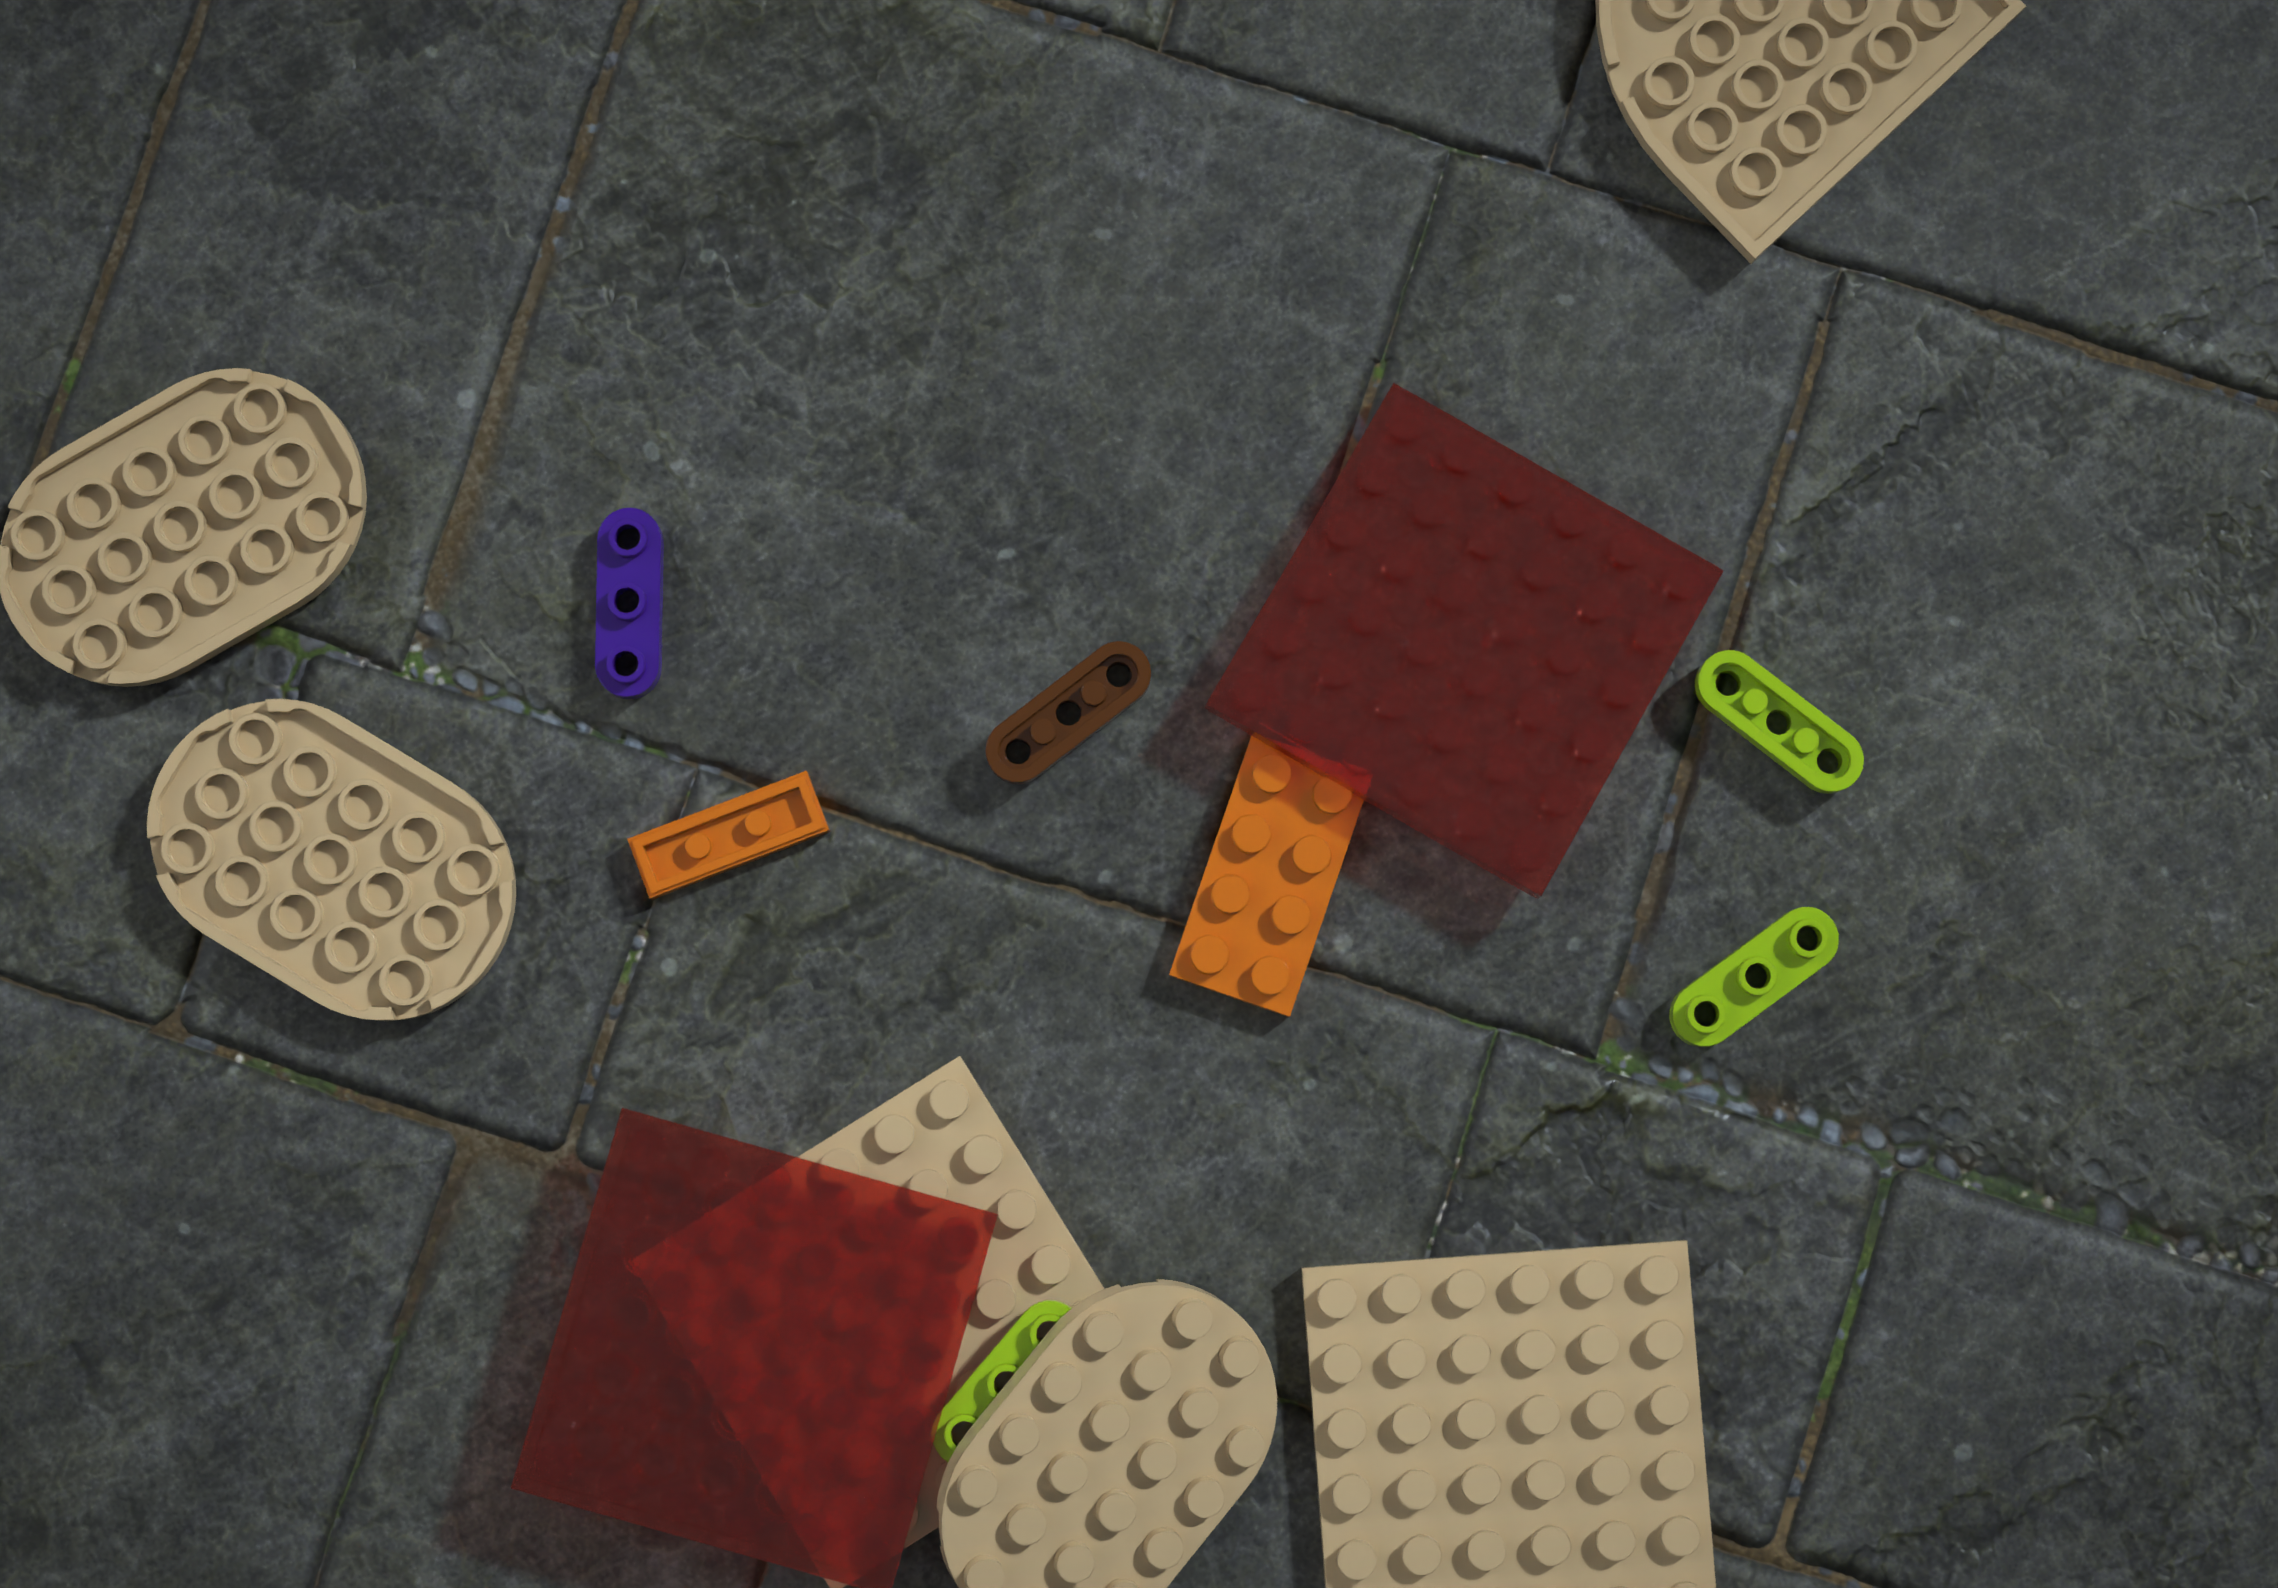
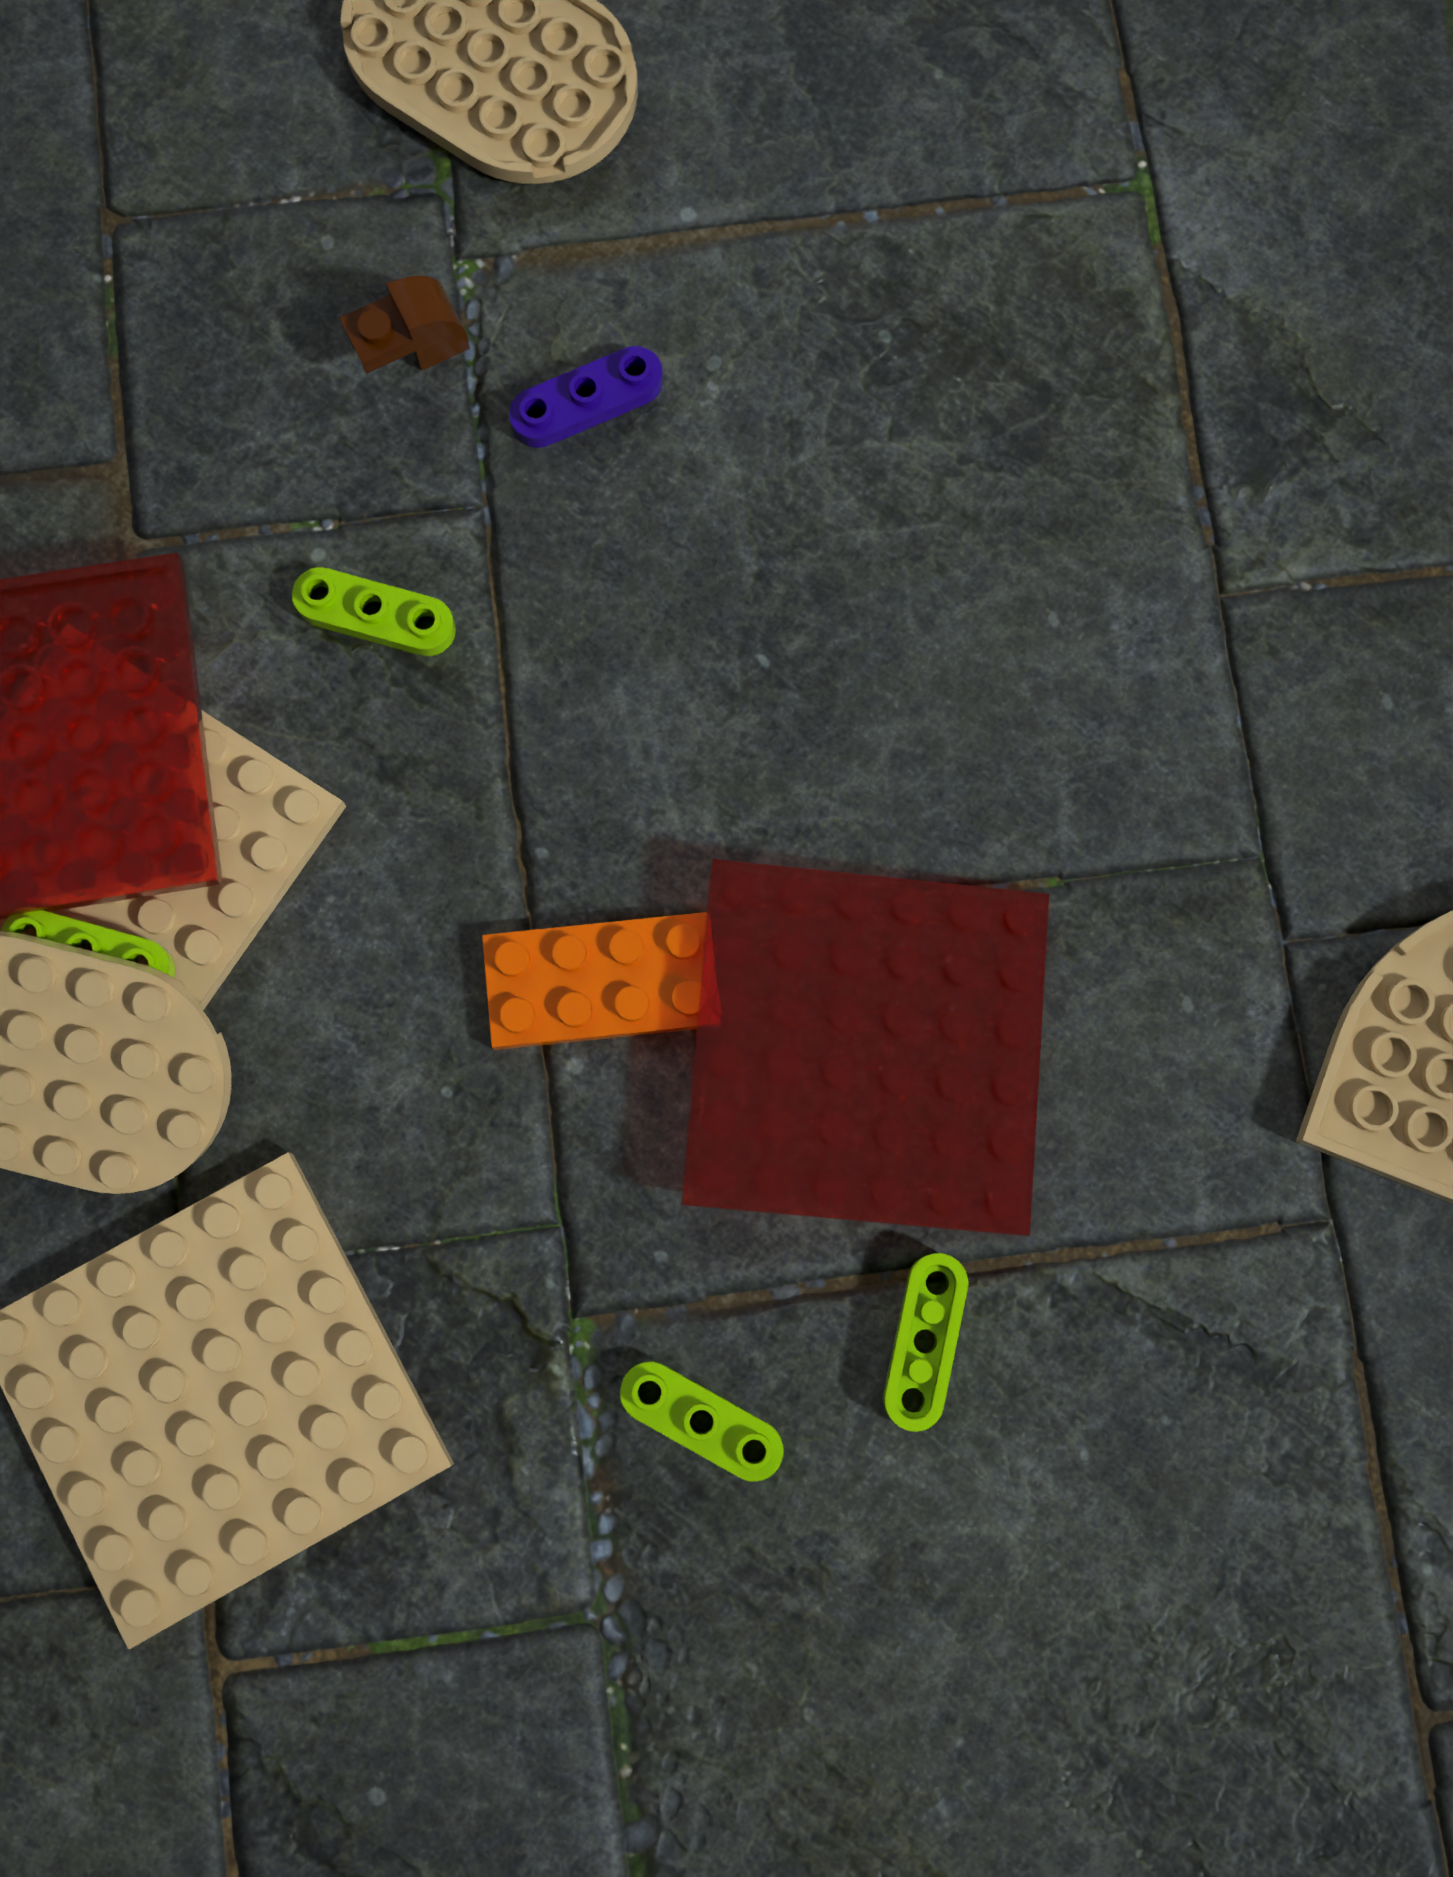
camera: 65 degrees right, 5 degrees down
(331, 860) = (269, 258): tan plate -> none
(470, 755) = (407, 321): none -> reddish brown brick
(728, 835) = (440, 550): orange tile -> none
(755, 964) = (391, 626): none -> lime plate
(1089, 691) = (640, 742): reddish brown plate -> none

